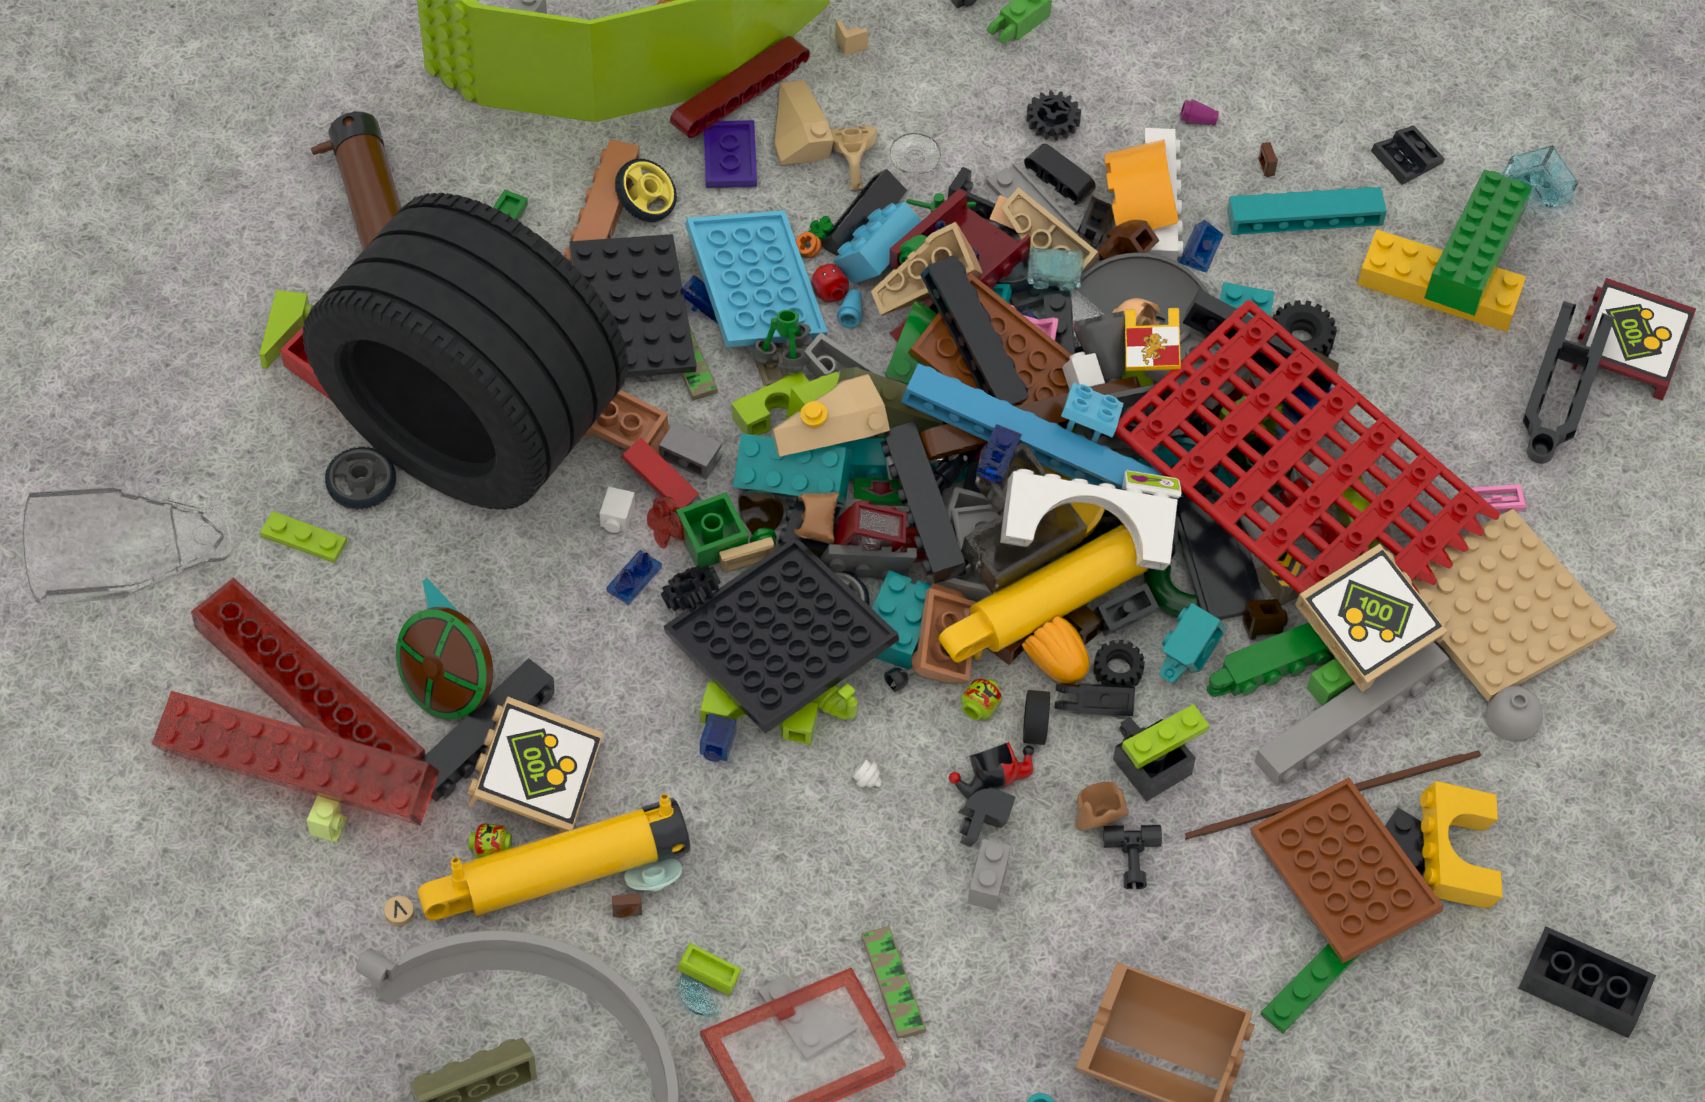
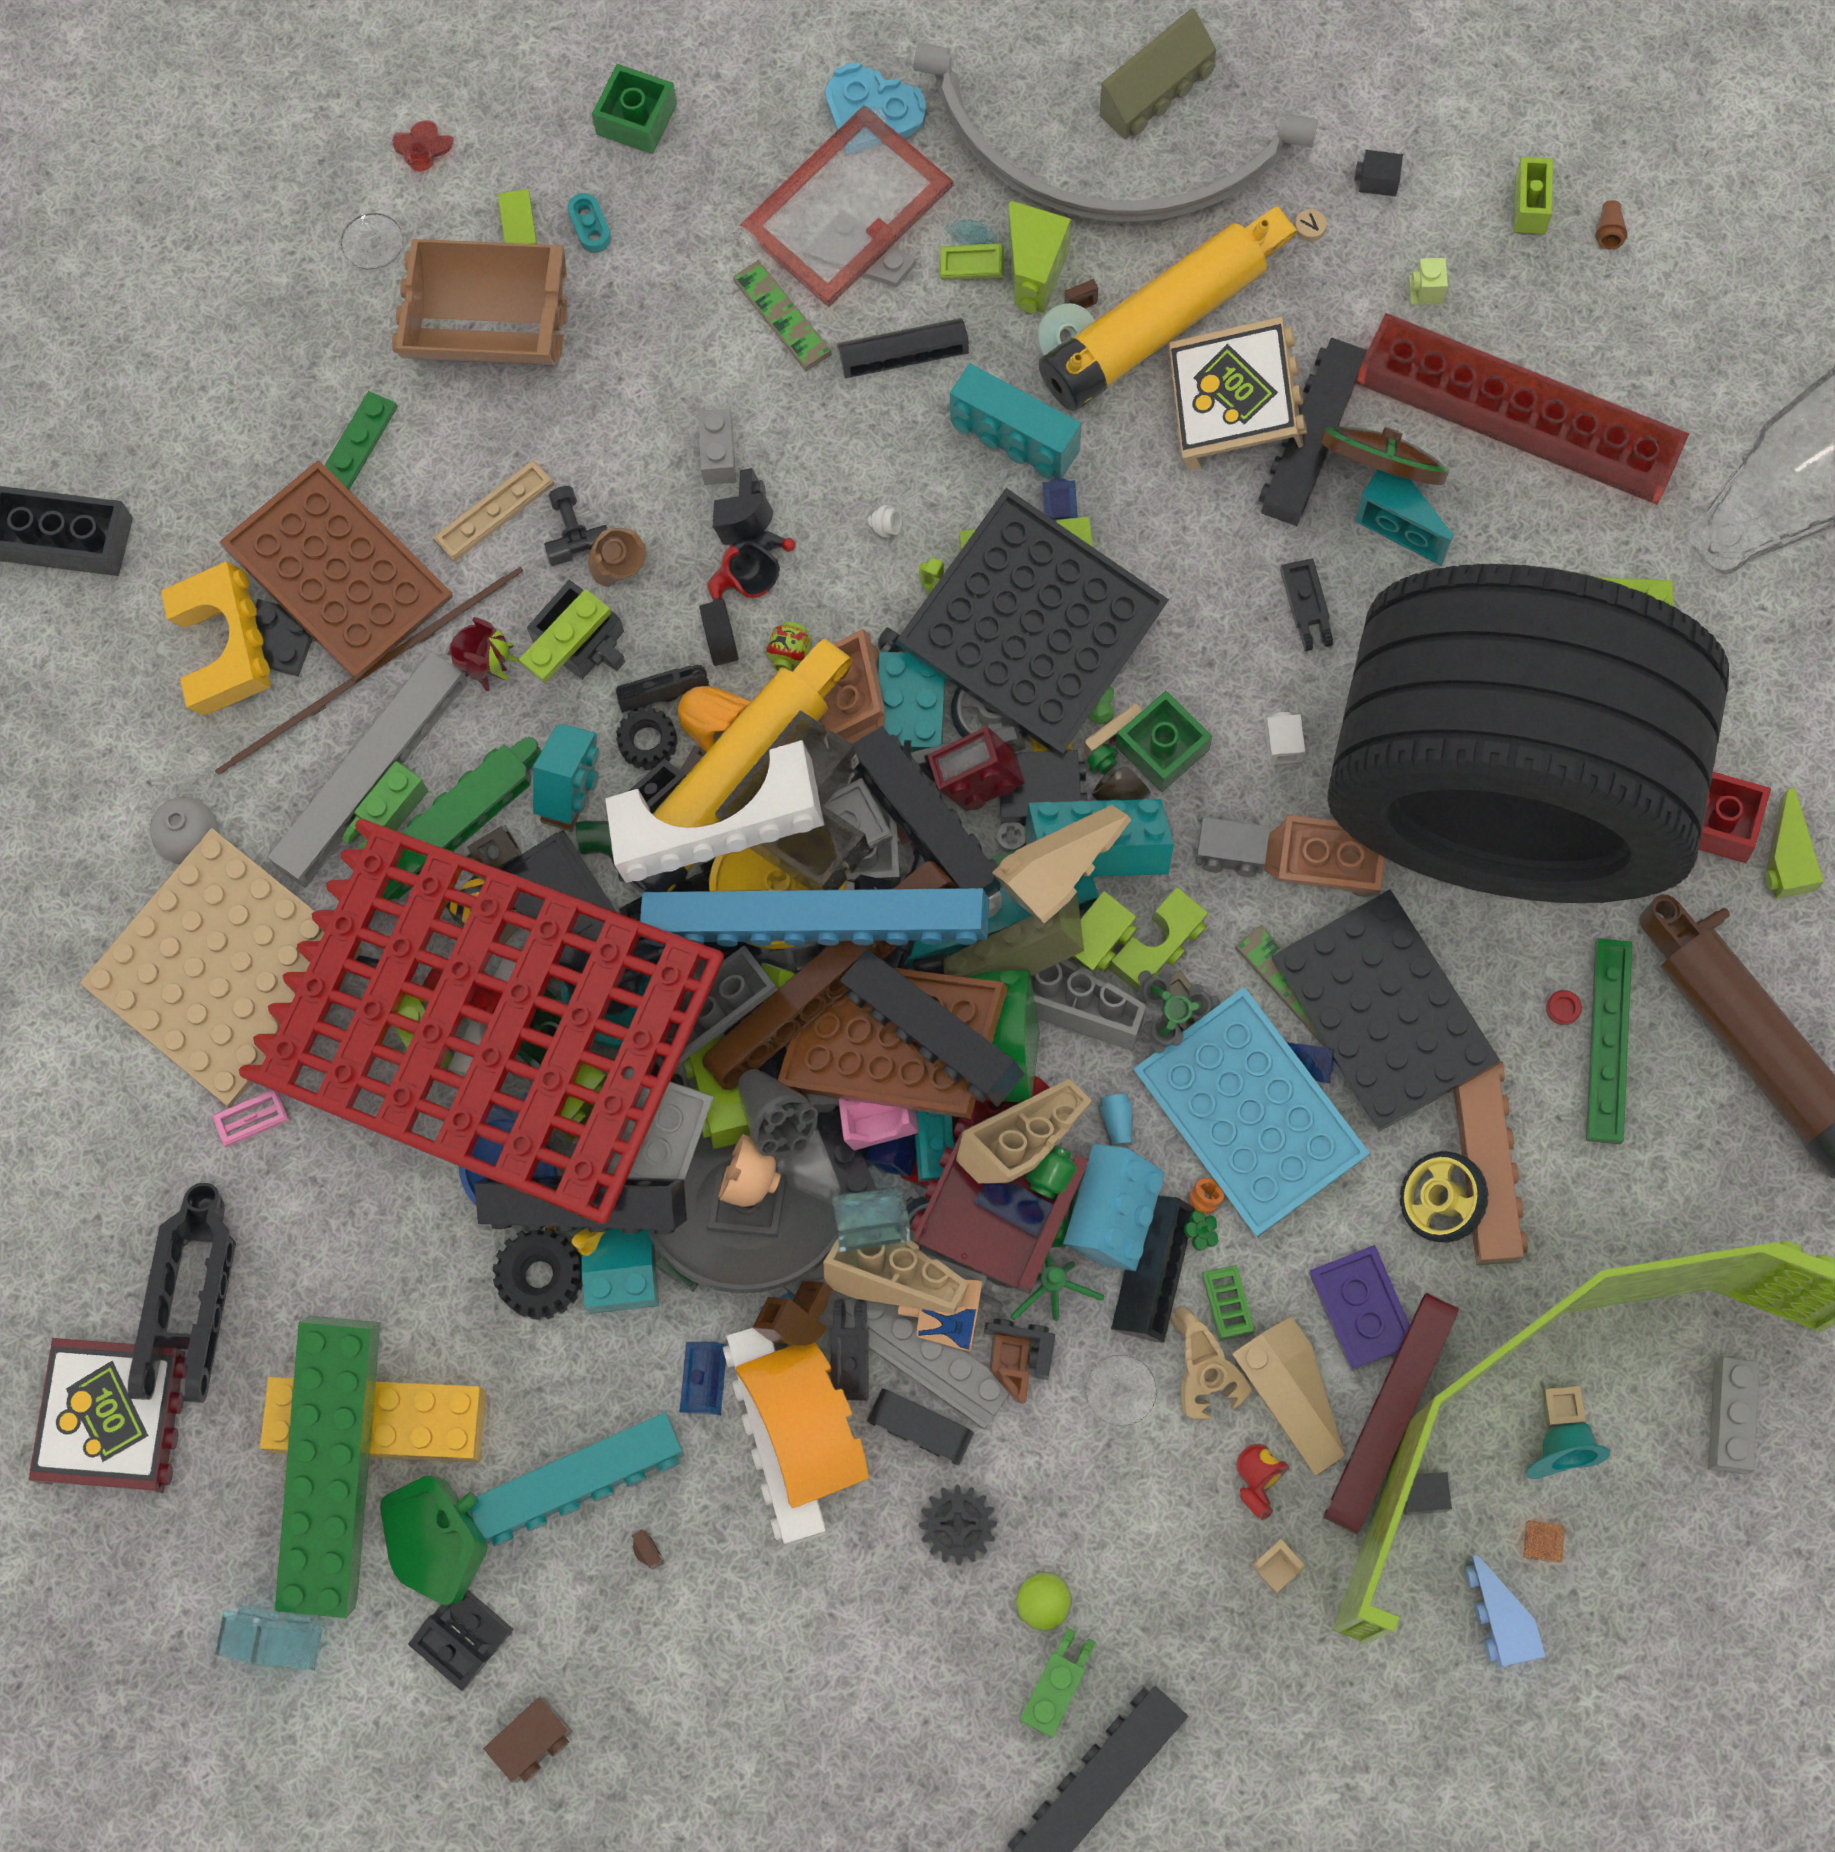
camera: 170 degrees right, 15 degrees up
(146, 821) = (1611, 226): none -> dark orange cone
(200, 859) = (1533, 195): none -> lime brick
(296, 757) = (1490, 307): clear red brick -> none
(318, 929) = (1379, 172): none -> black brick
(489, 840) = (1248, 311): head -> none
(551, 607) = (1306, 601): none -> black hinge
(634, 577) = (1231, 670): clear blue tile -> none
(652, 941) = (1037, 254): none -> lime slope
(659, 473) = (1254, 796): red tile -> none
(665, 521) = (1225, 737): clear red plate -> none
(690, 587) = (1159, 661): black gear -> none
(730, 803) = (1014, 422): none -> teal brick
(797, 915) = (903, 348): none -> black brick
(814, 414) = (1085, 835): yellow plate -> none
(818, 516) = (1043, 769): medium nougat hair -> none
(822, 167) = (1232, 1331): none -> bright green slope
(830, 283) = (1157, 1142): red head -> none
(842, 84) = (1260, 1472): none -> red piece
(986, 183) = (1009, 1364): none -> dark orange slope
(998, 454) = (845, 853): clear blue plate -> none
(1010, 65) = (1044, 1601): none -> lime hair
(1083, 370) = (787, 1059): white brick -> none
(1092, 410) = (751, 959): medium azure plate -> none
(1152, 345) = (705, 1099): flag -> none
(1152, 484) = (653, 892): slope -> none
(1197, 892) = (493, 510): none -> tan tile
(1198, 113) = (763, 1602): magenta cone -> none
(1238, 757) = (481, 651): none -> dark red hair
(1370, 616) = (356, 842): panel -> none
(1375, 82) = (528, 1741): none -> reddish brown brick
(1414, 203) = (432, 1538): none -> green animal

